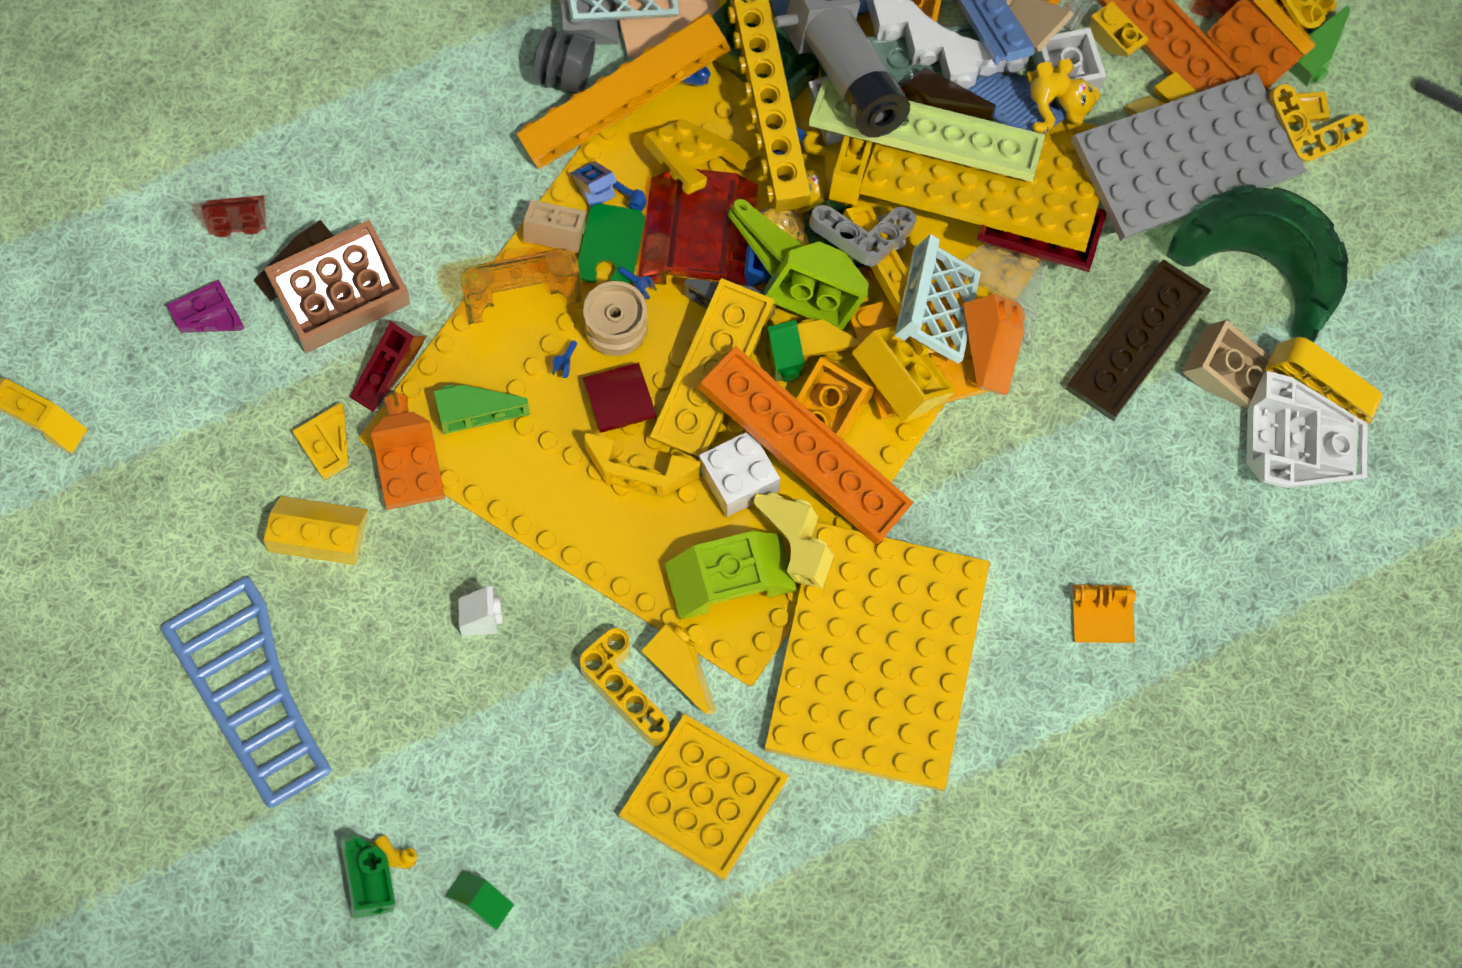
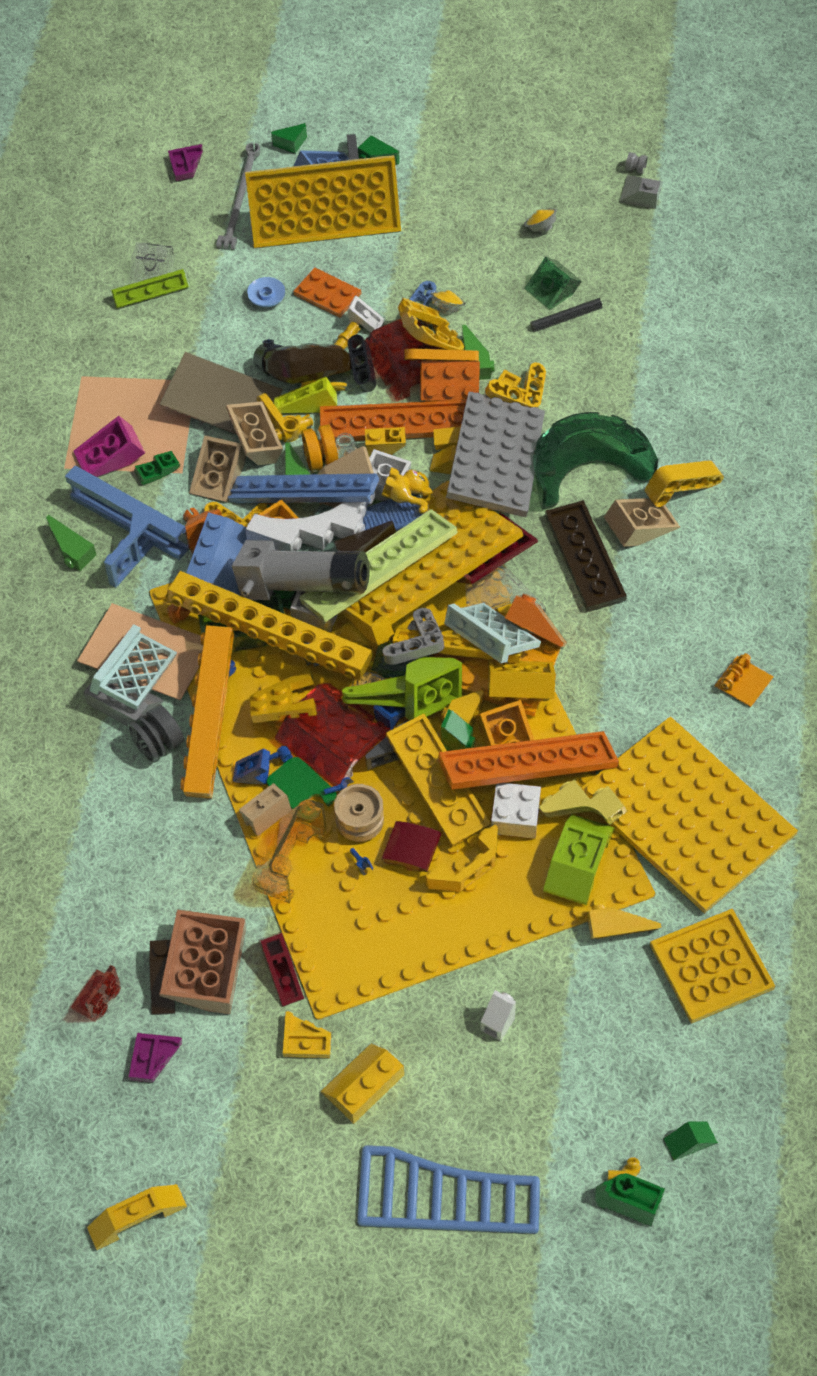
camera: 50 degrees left, 10 degrees down
(406, 456) = (357, 993): orange plate -> none
(471, 407) = (352, 933): bright green slope -> none
(629, 693) = (611, 963): yellow beam -> none
(1302, 436) = (707, 515): white wedge -> none

